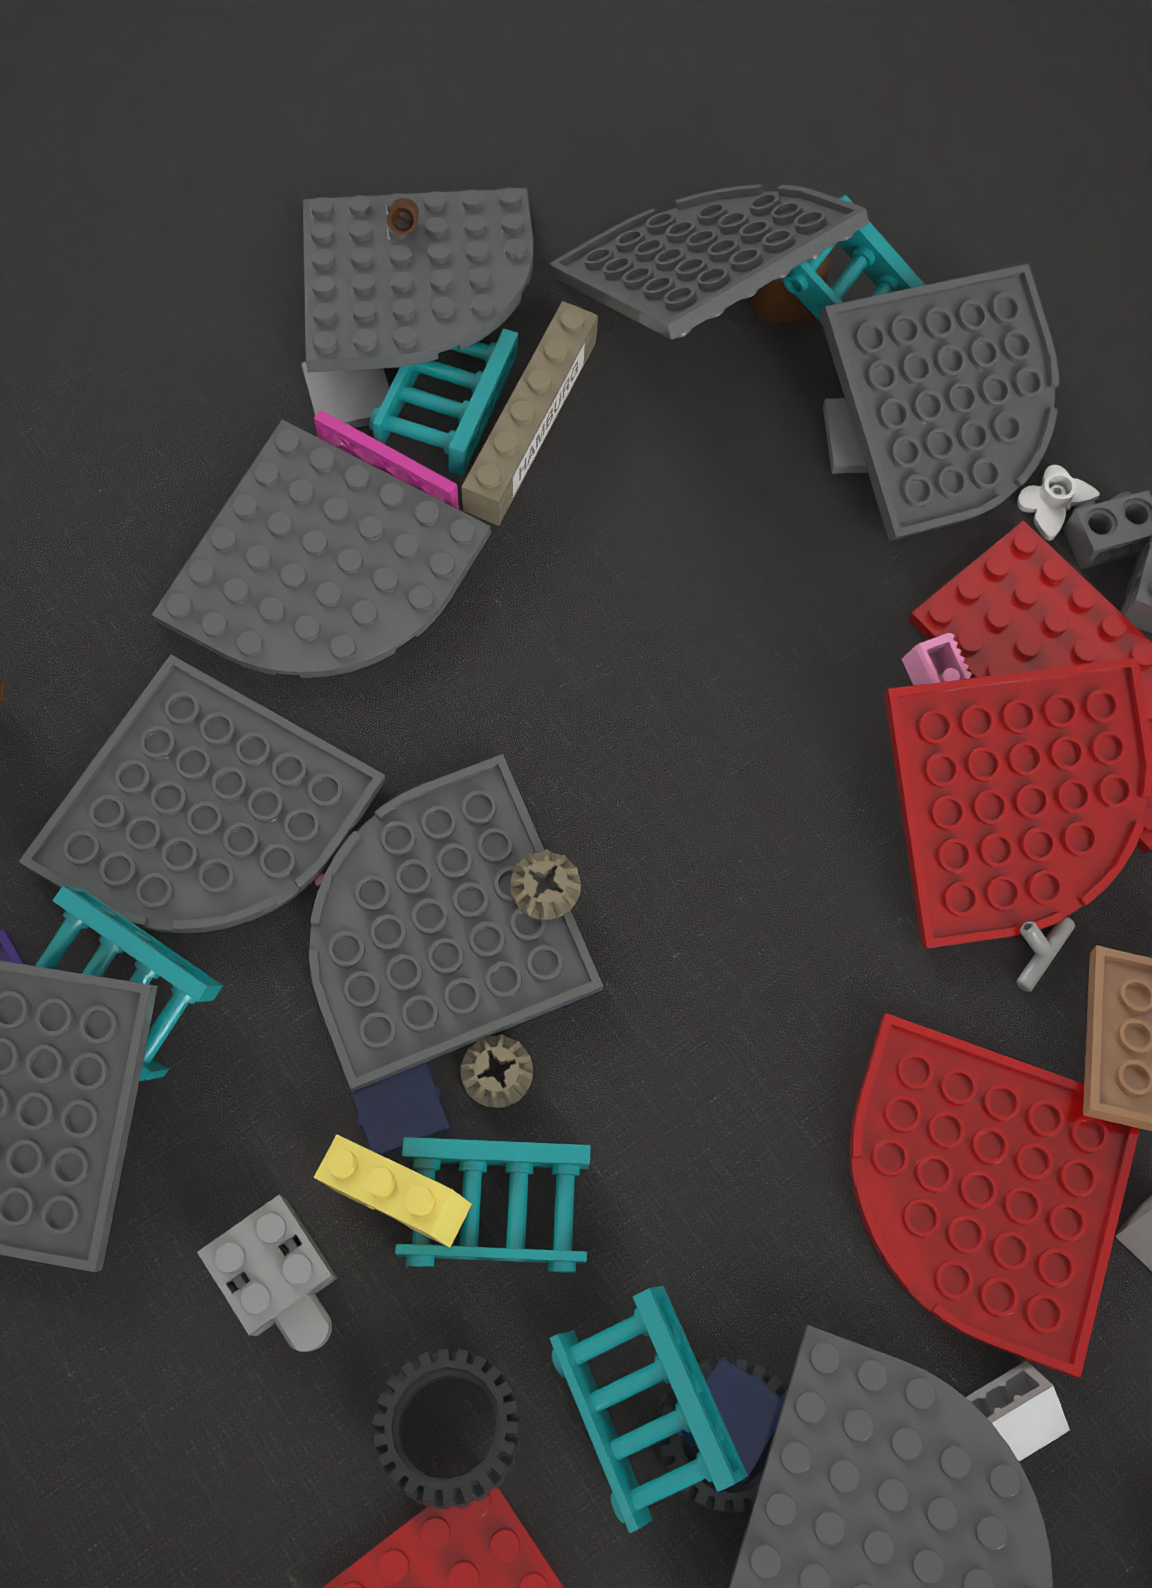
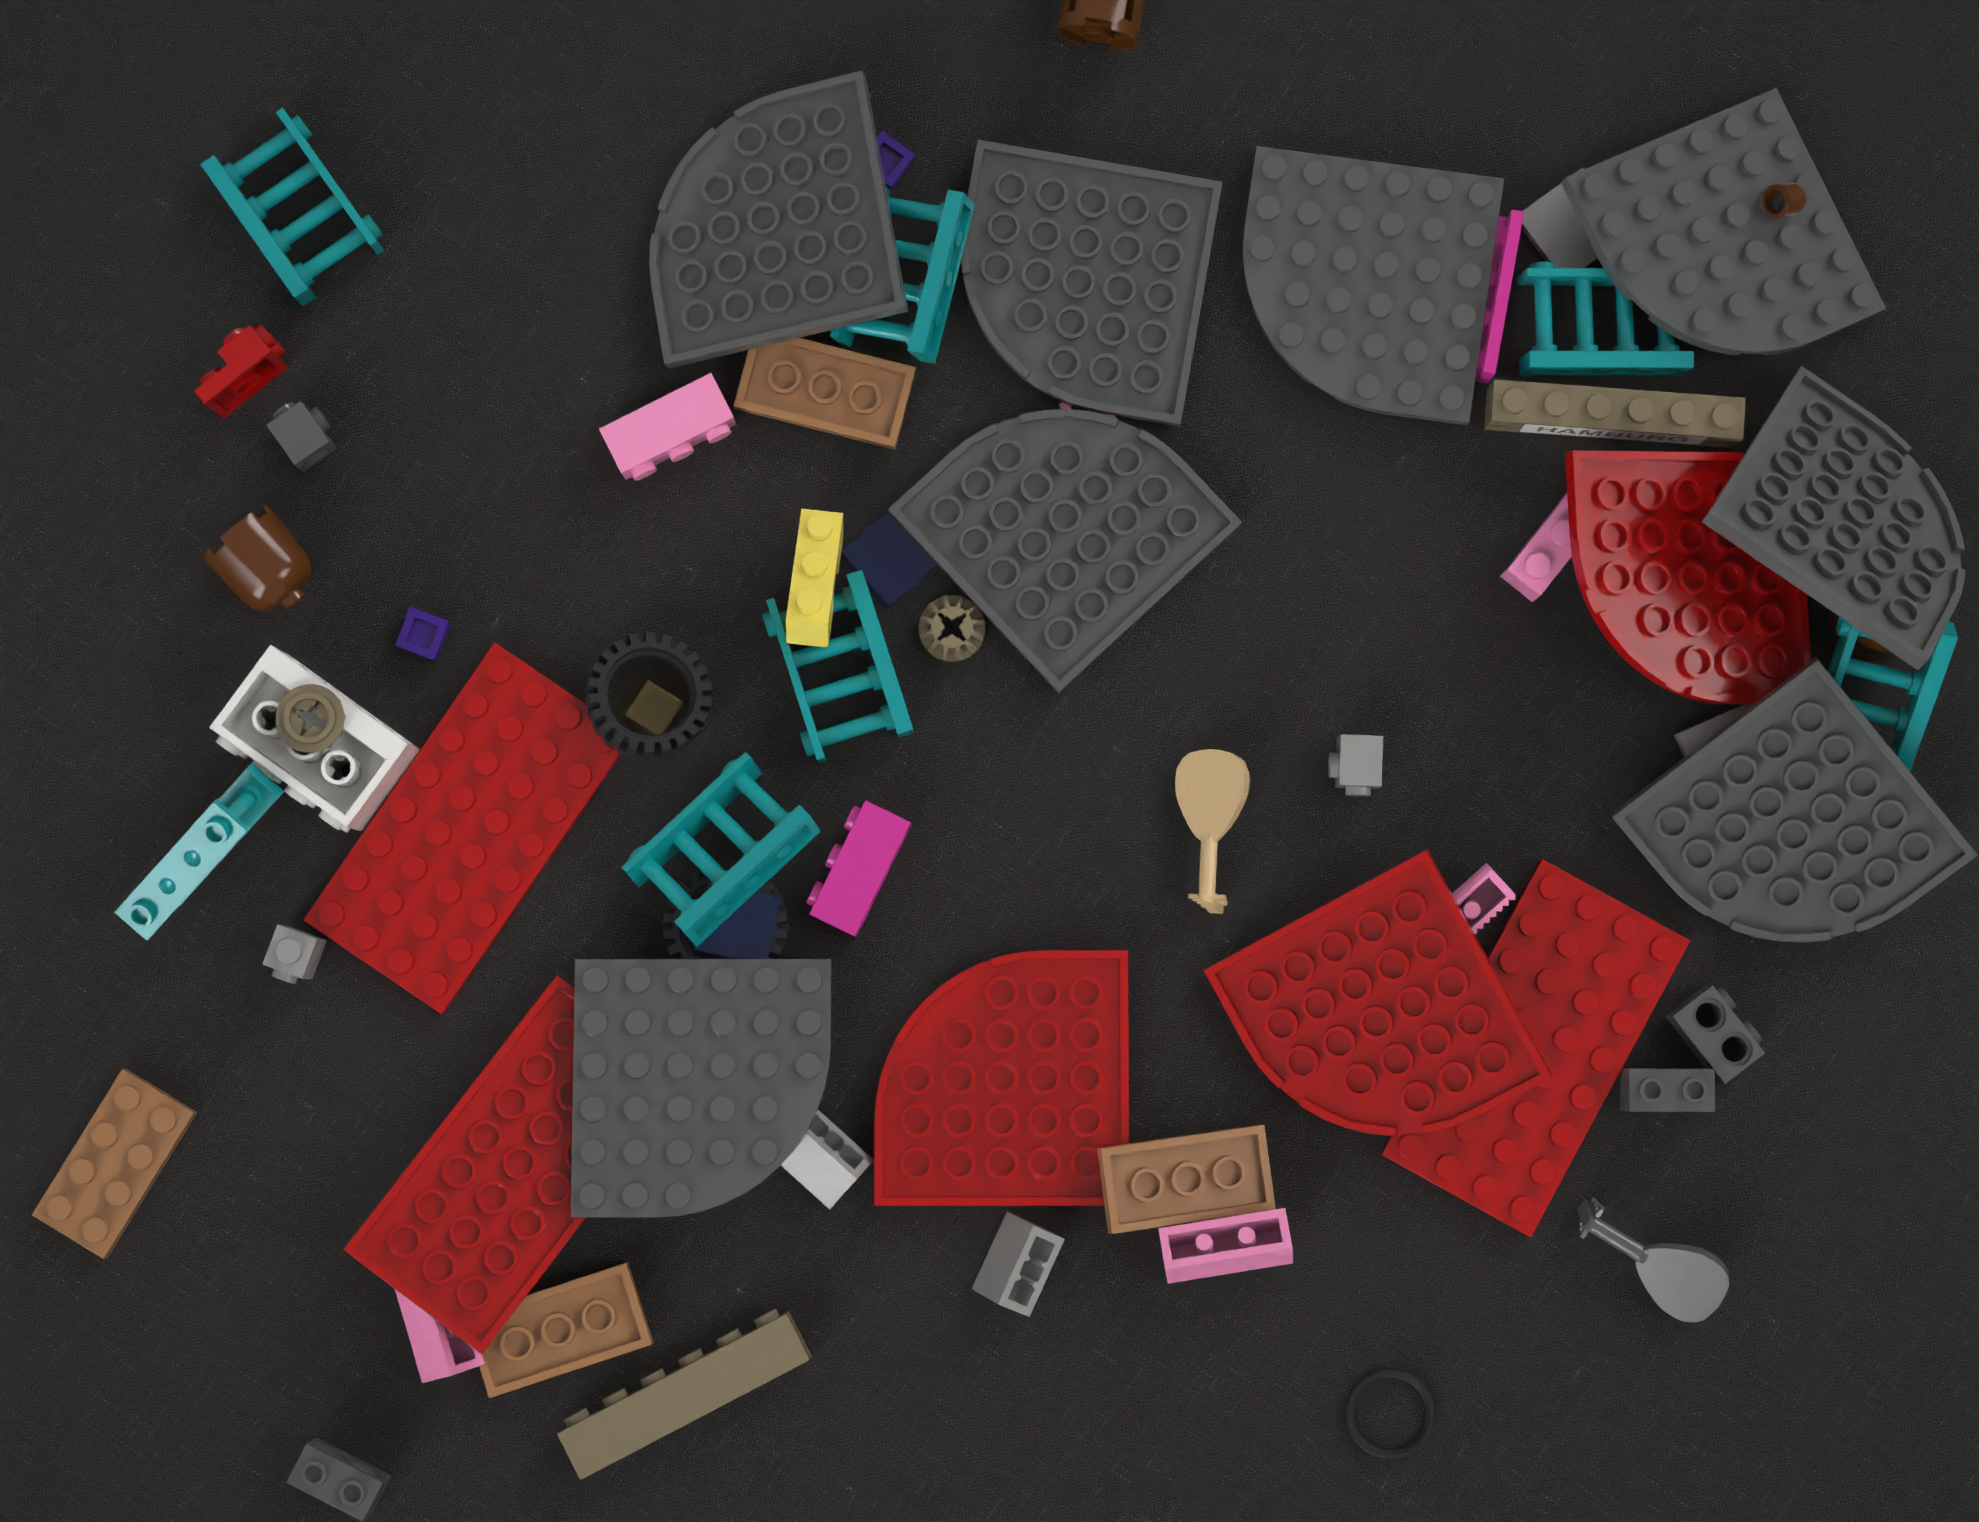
camera: 75 degrees right, 15 degrees up
(165, 1294) = (668, 428): none -> bright pink brick
(199, 1109) = (827, 390): none -> medium nougat plate
(272, 1277) = (712, 508): light grey brick -> none
(462, 1427) = (654, 708): none -> clear yellow tile
(550, 903) = (1113, 618): dark tan gear -> none
(624, 493) = (1542, 554): none -> bright pink brick
(700, 402) = (1672, 589): none -> red plate
(714, 1261) = (858, 867): none -> dark pink brick
(759, 877) = (1211, 794): none -> tan piece
(771, 735) = (1357, 764): none -> light grey brick
(1044, 949) = (1244, 1079): light grey piece -> none
(1053, 499) = (1734, 967): white animal -> none

